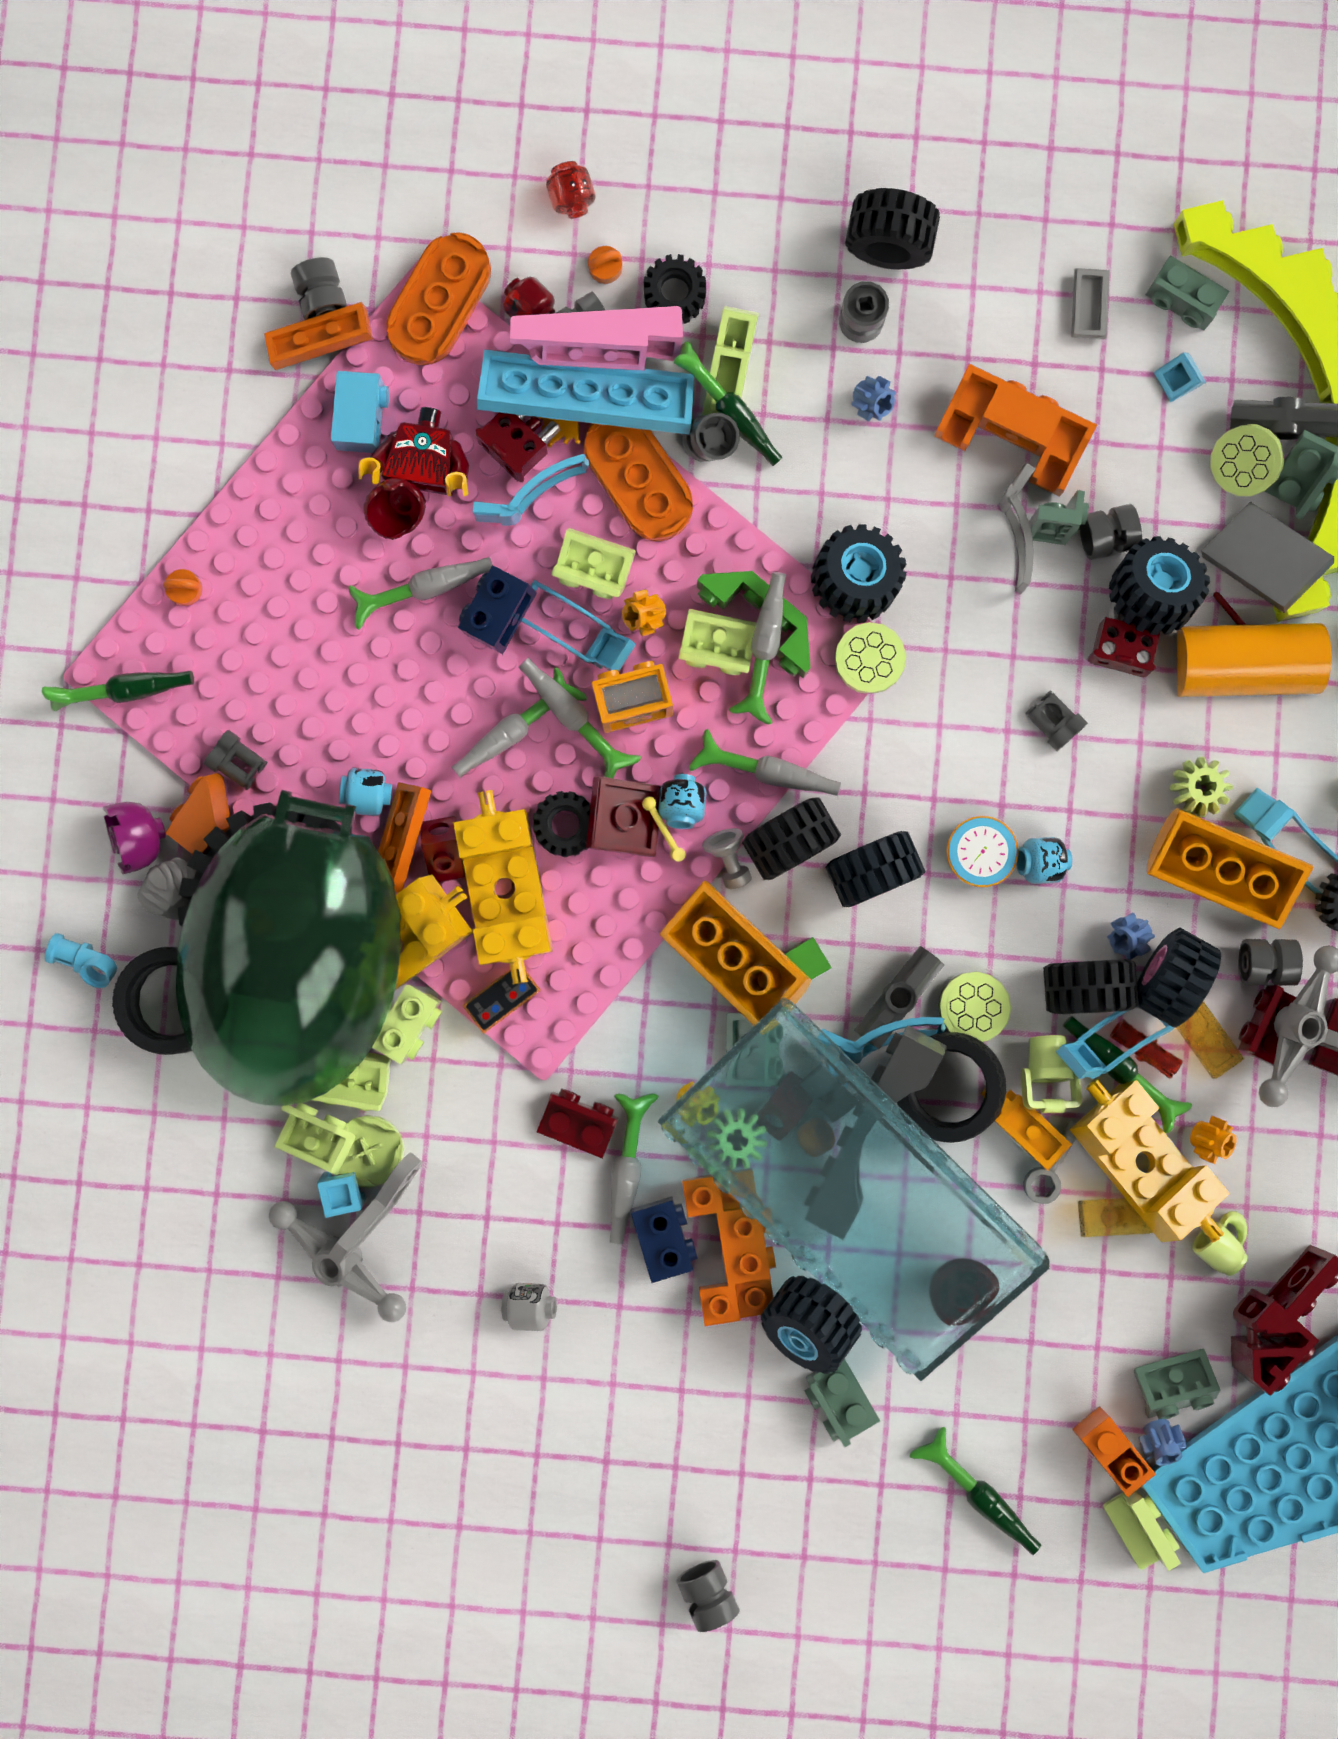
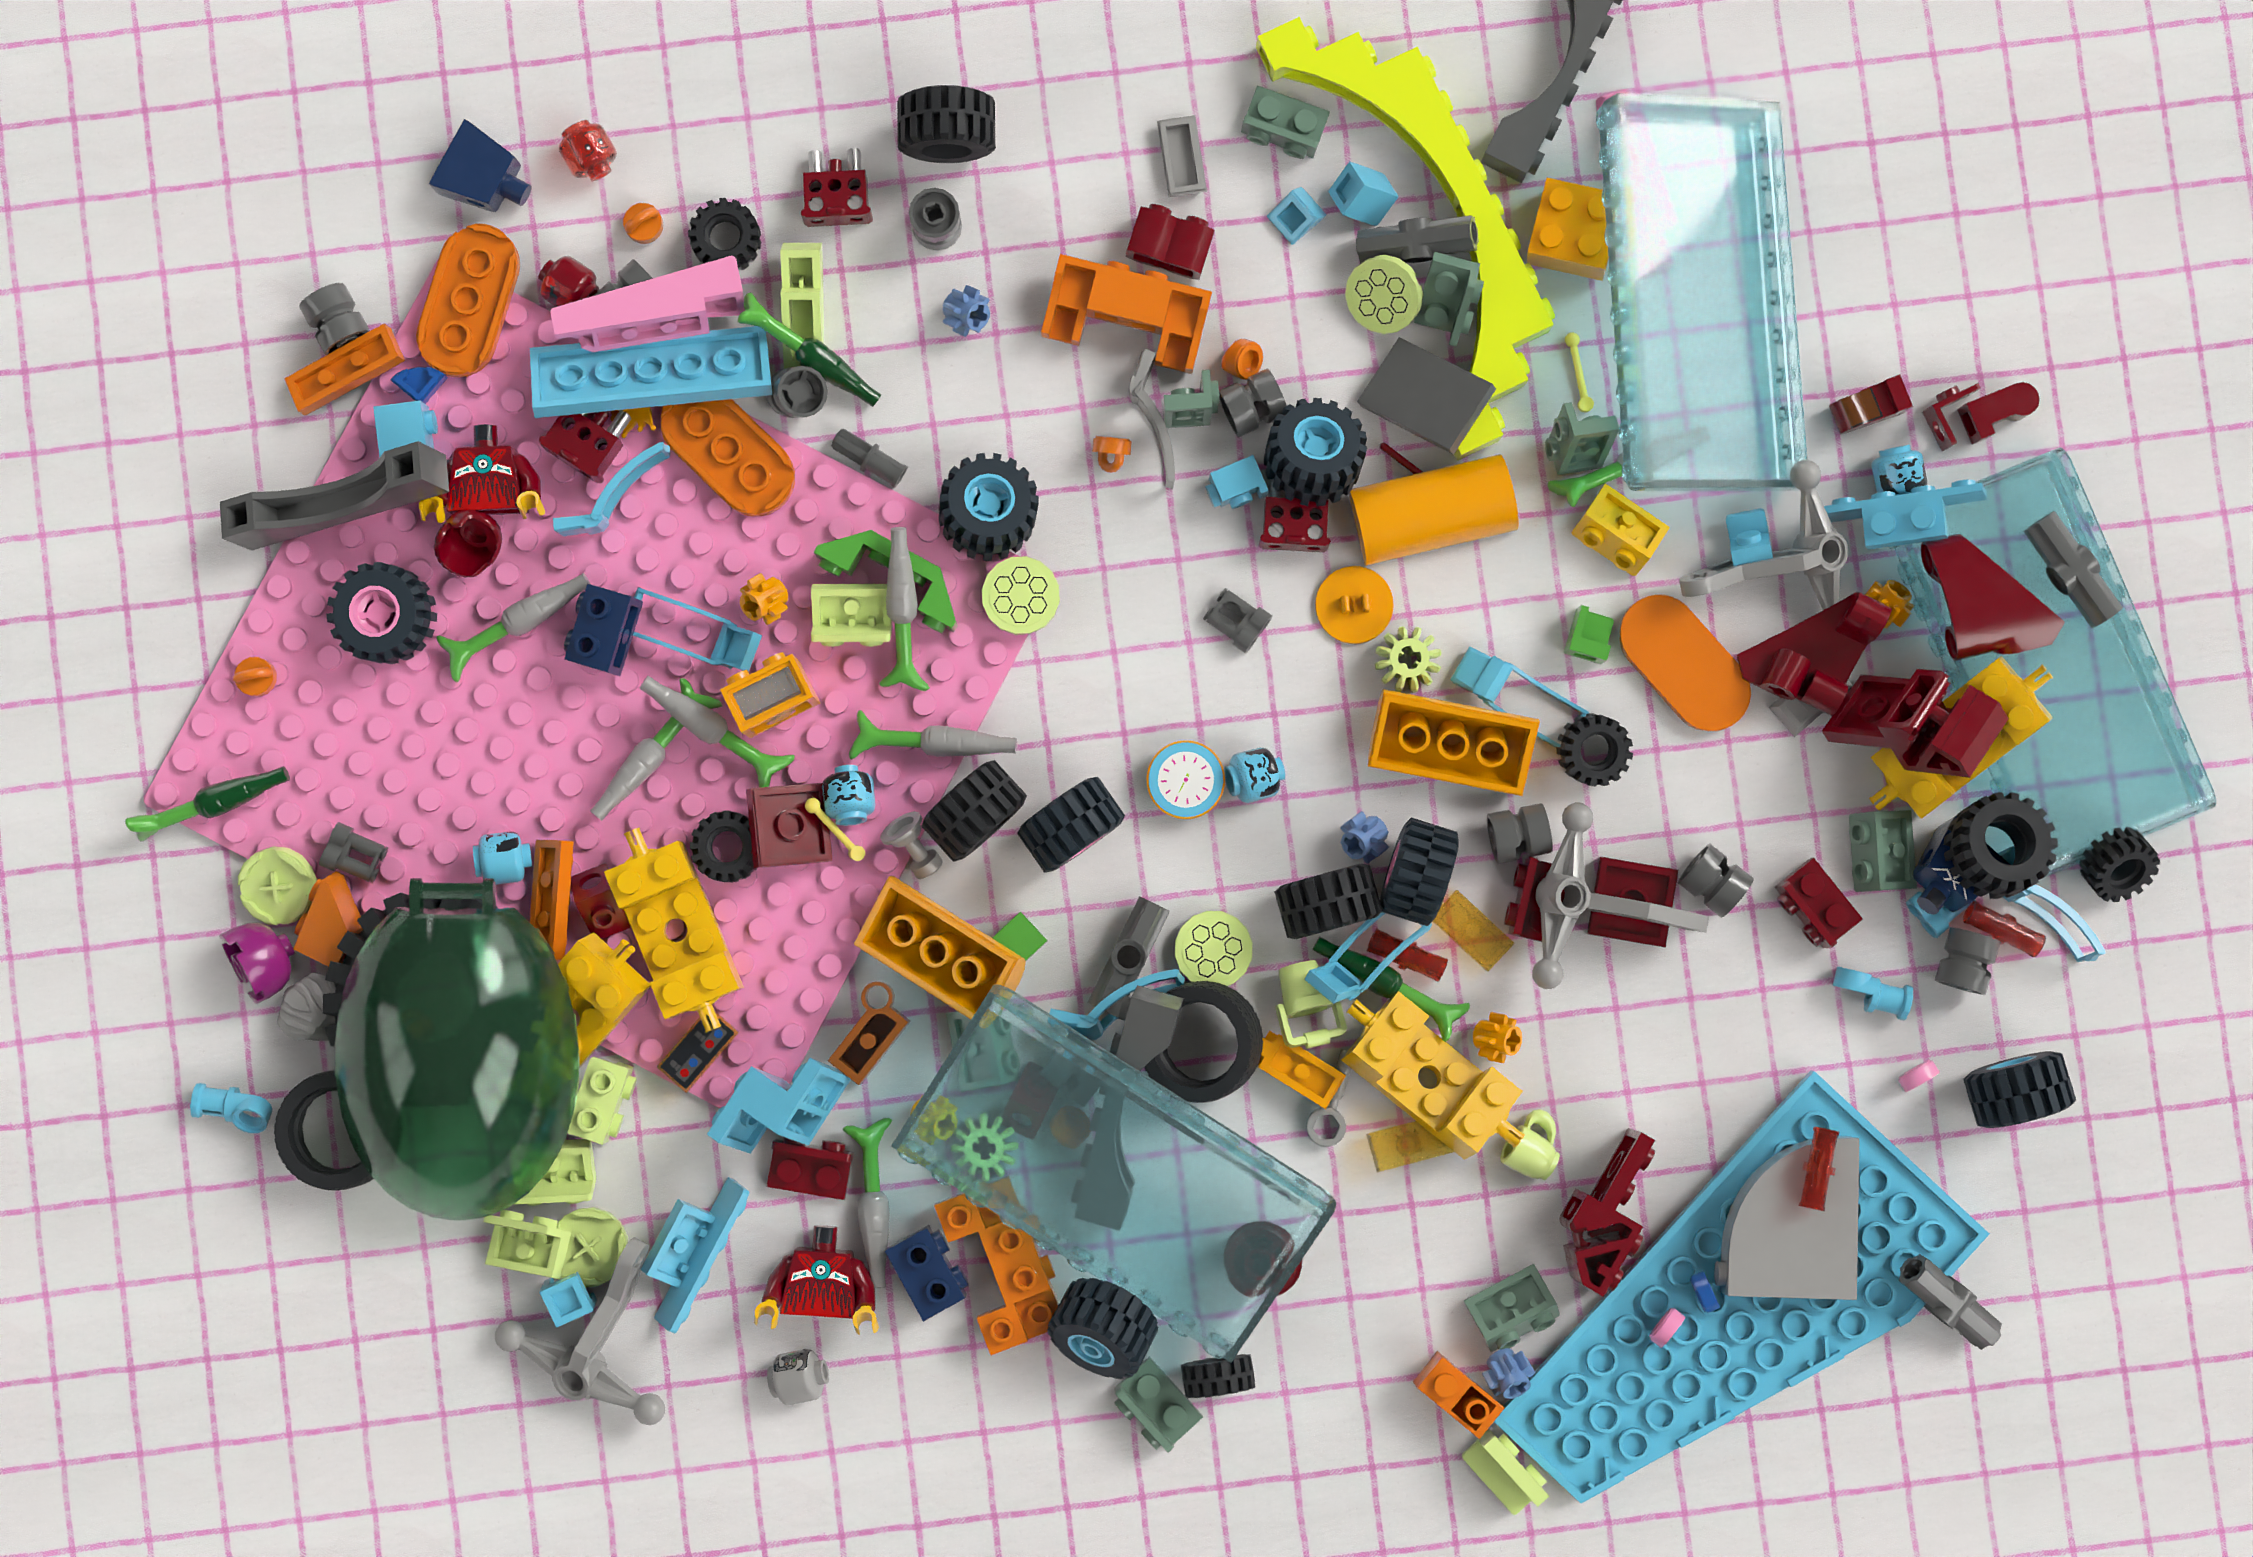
camera: 20 degrees left, 0 degrees up
(162, 774) = (276, 885): none -> yellowish green tile
(305, 554) = (381, 613): none -> black wheel
(344, 436) = (392, 481): none -> dark grey arch
(381, 360) = (419, 382): none -> blue tile
(457, 1172) = (689, 1248): none -> medium azure bracket
(472, 189) = (479, 171): none -> dark blue torso
(559, 1059) = (773, 1103): none -> medium azure bracket
(566, 1229) = (820, 1284): none -> torso
(593, 564) = (698, 557): yellowish green bracket -> none
(655, 1020) = (869, 1037): none -> dark orange hinge
(760, 509) = (869, 457): none -> dark grey axle
(779, 274) = (839, 206): none -> dark red piece
(901, 1390) = (1217, 1376): none -> black tyre
(977, 543) = (1111, 445): none -> orange tile
(979, 1493) = (1325, 1472): dark green piece -> none
(1066, 376) = (1170, 241): none -> dark red brick
(1081, 600) = (1236, 484): none -> medium azure brick
(1108, 491) = (1243, 359): none -> orange tile
(1161, 729) = (1354, 605): none -> light orange piece
(1244, 369) = (1363, 194): none -> medium azure panel
(1316, 1433) = (1666, 1327): none -> bright pink tile

